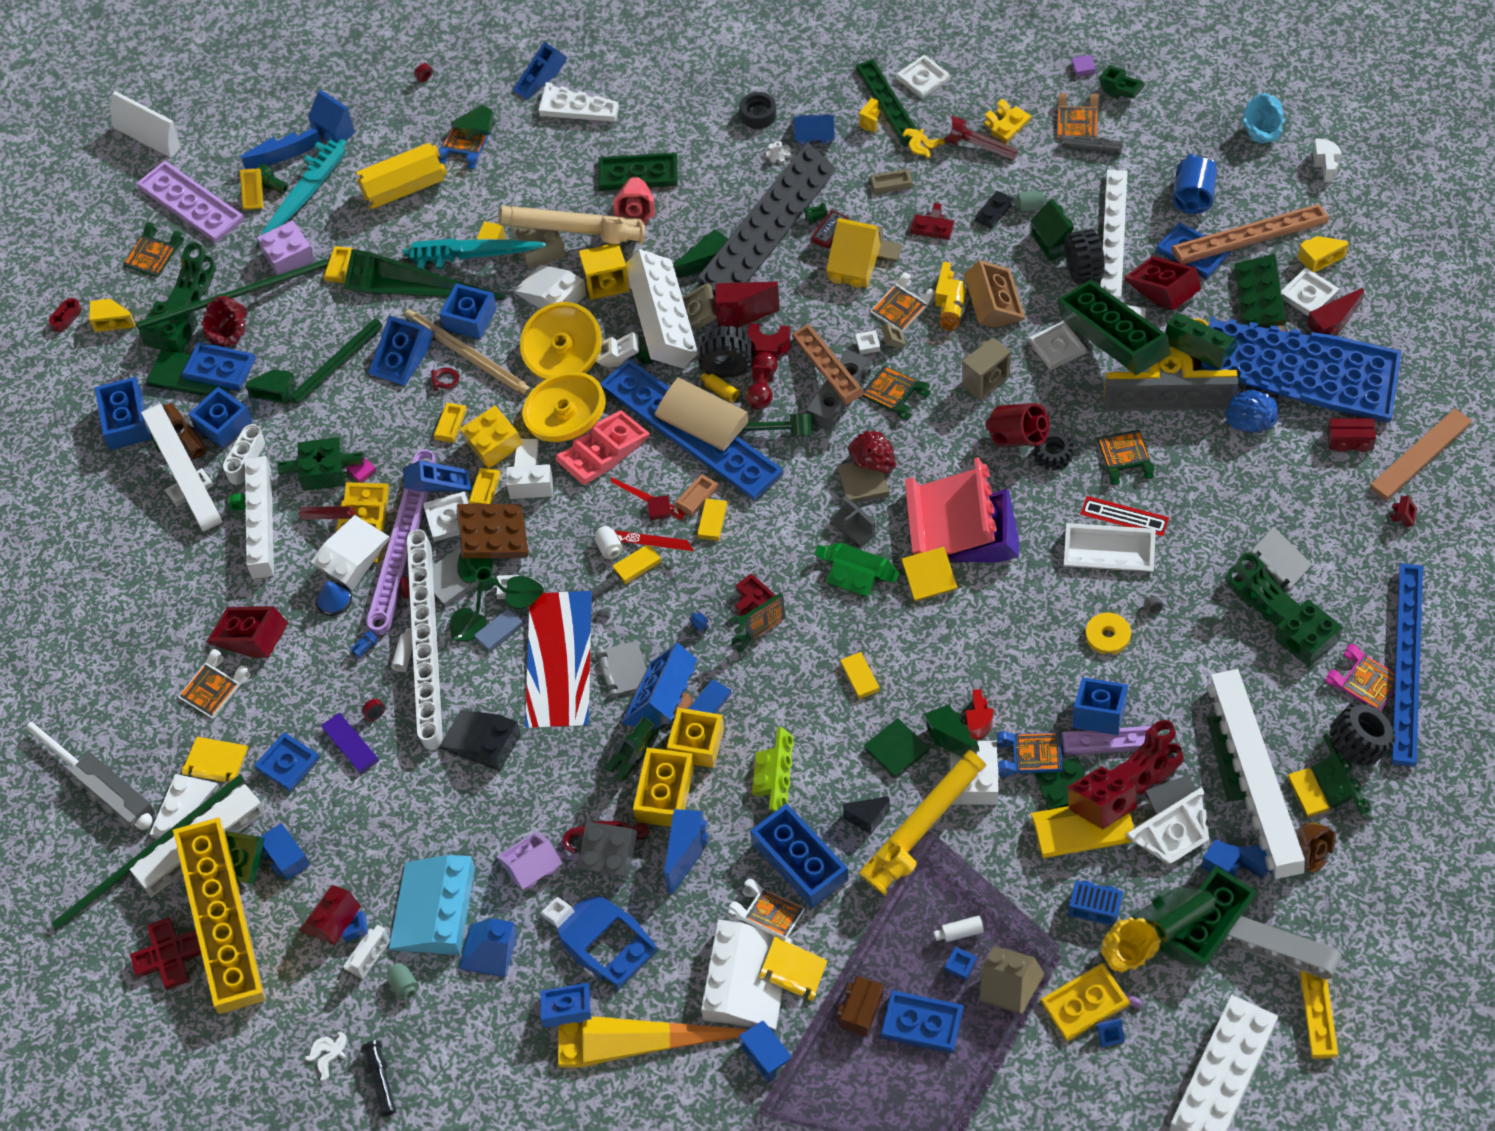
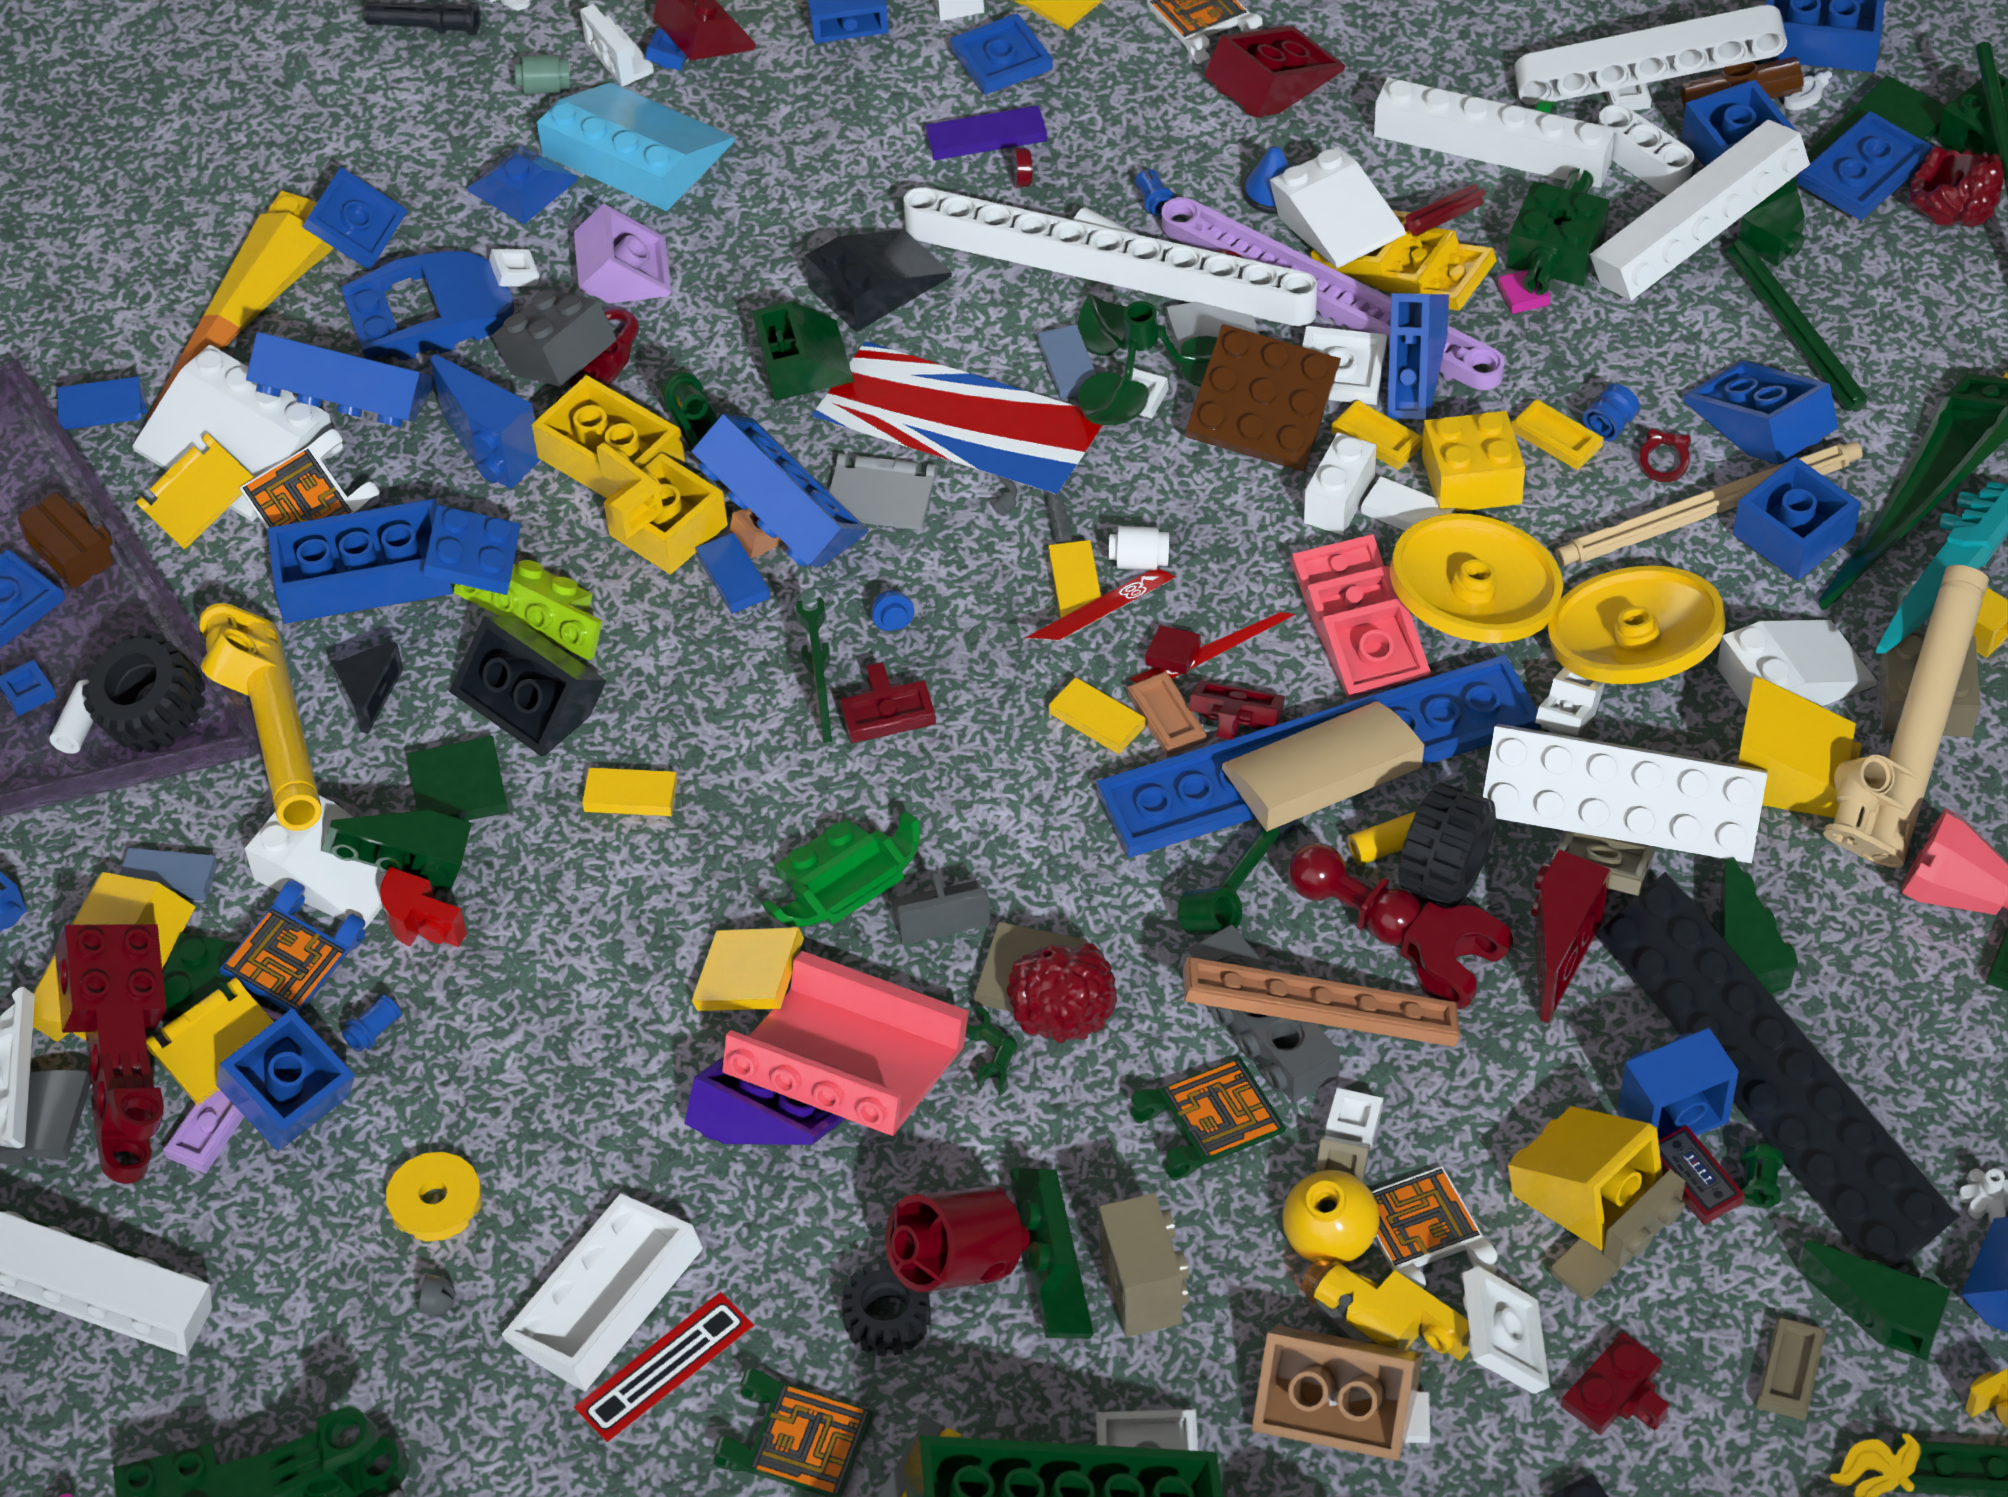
camera: 115 degrees right, 5 degrees down
(287, 406) = (1700, 209): none -> white brick
(430, 402) = (1612, 411): none -> blue wheel
(557, 739) = (800, 350): none -> dark green slope
(682, 465) = (1235, 706): none -> dark red hinge
(692, 923) = (337, 378): none -> blue slope
(708, 725) = (641, 492): none -> yellow bracket
(773, 795) = (471, 549): none -> blue plate
(799, 241) = (1680, 1085): none -> blue brick
(827, 745) = (526, 684): none -> black slope
(850, 161) = (1884, 1302): none -> dark green slope
(914, 470) = (1004, 1046): none -> dark green arm
(919, 329) = (1334, 1234): none -> yellow piece
(935, 255) = (1505, 1330): none -> white plate
(951, 880) = (124, 673): none -> black tyre
(1001, 395) = (1051, 1254): none -> dark green bracket
(1019, 838) = (182, 873): none -> sand blue tile
(1044, 703) = (363, 1031): none -> blue pin
(1095, 750) = (207, 1037): none -> yellow piece

